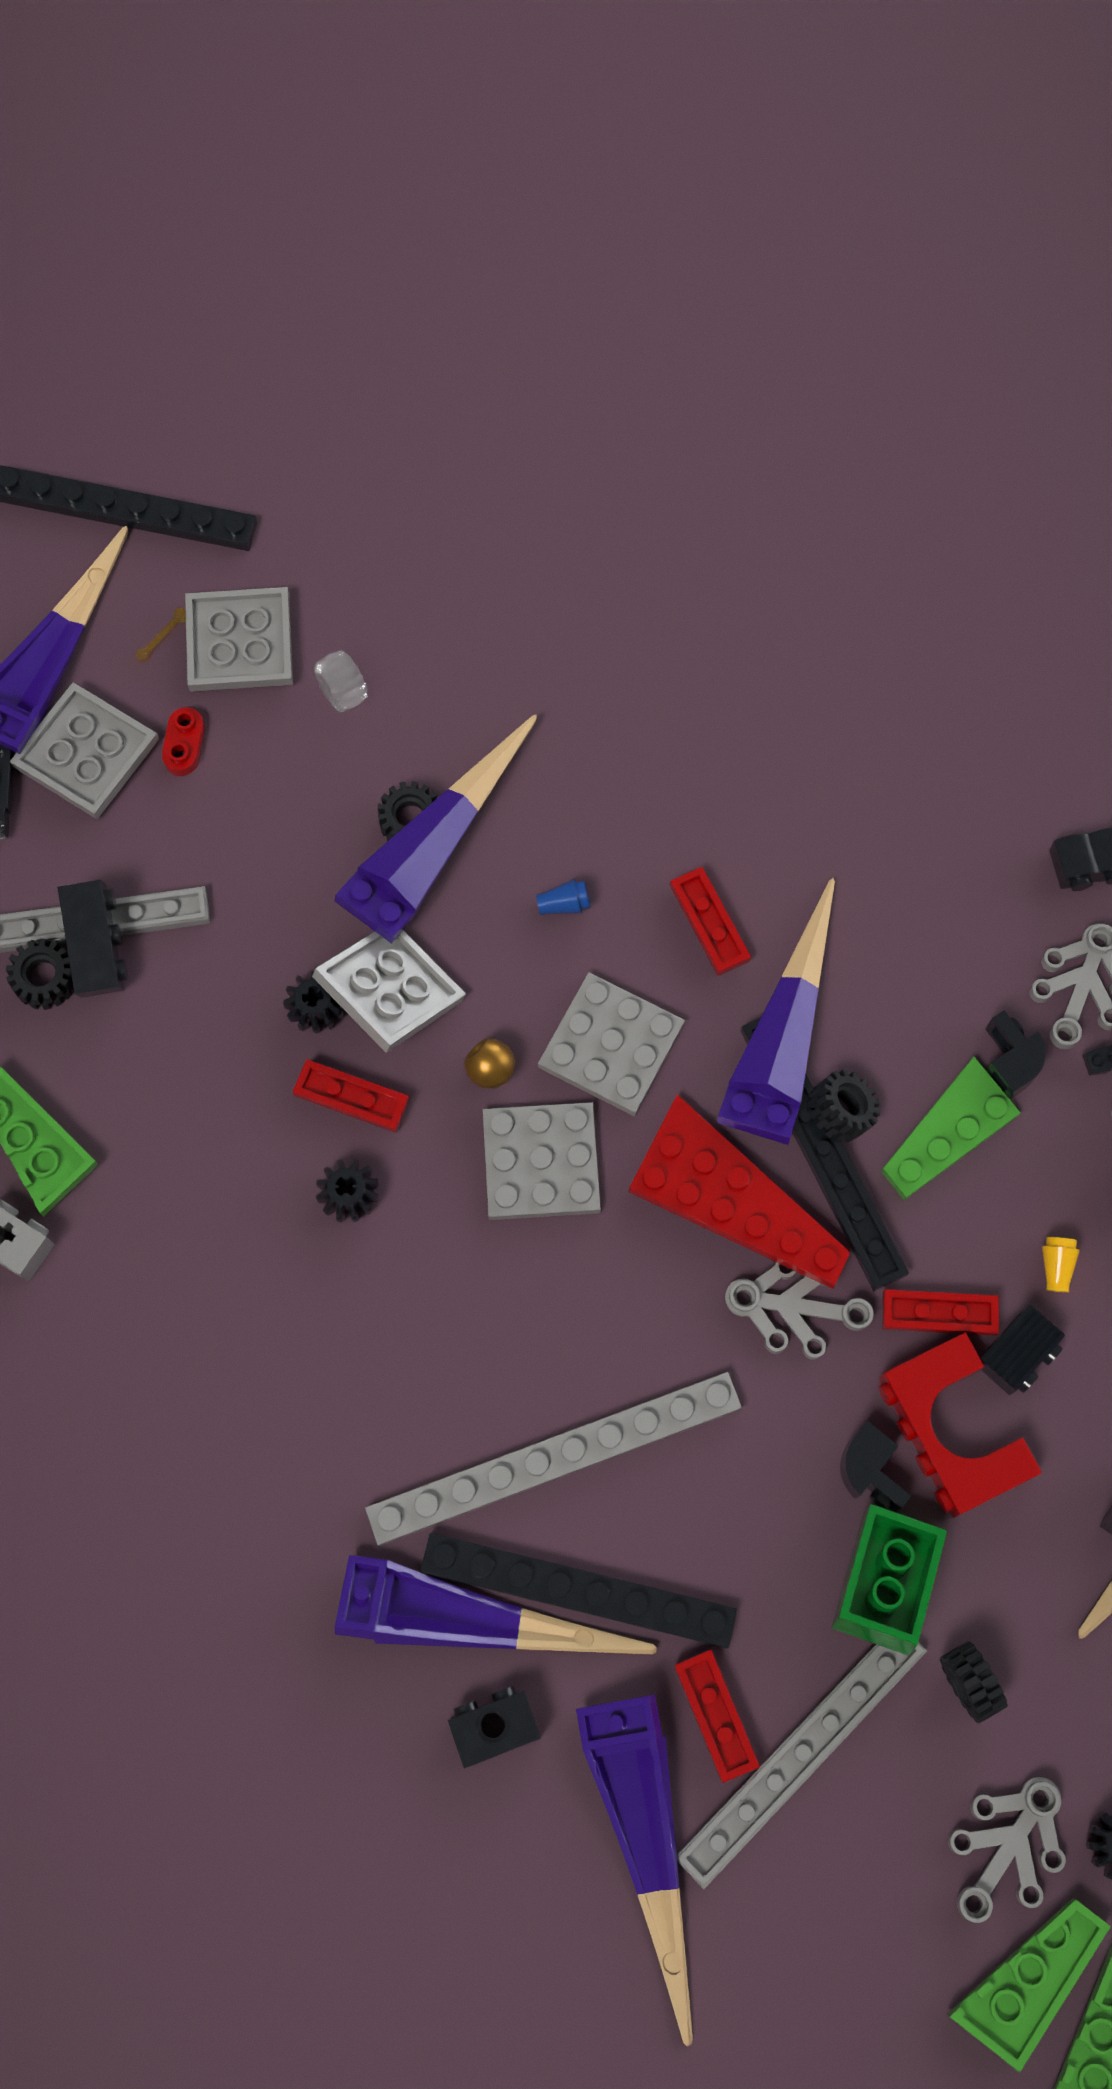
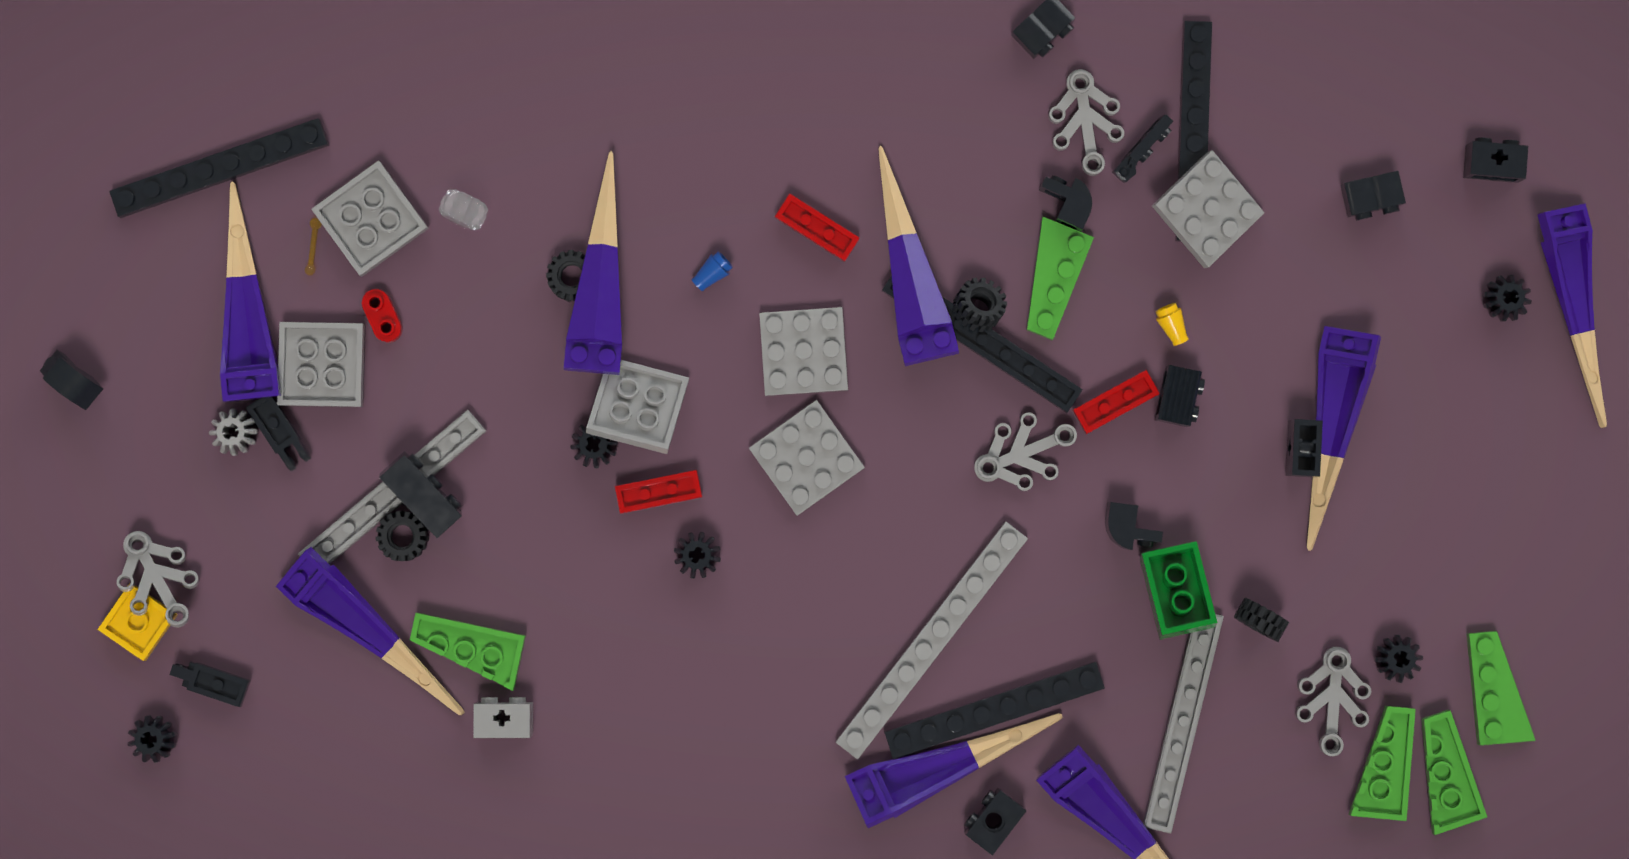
camera: 30 degrees left, 15 degrees up
(490, 1064) = (735, 416): pearl gold piece -> none
(716, 1716) = (1120, 731): red plate -> none
(717, 1187) = (930, 407): red wing -> none
(959, 1480) = (1127, 463): red arch -> none

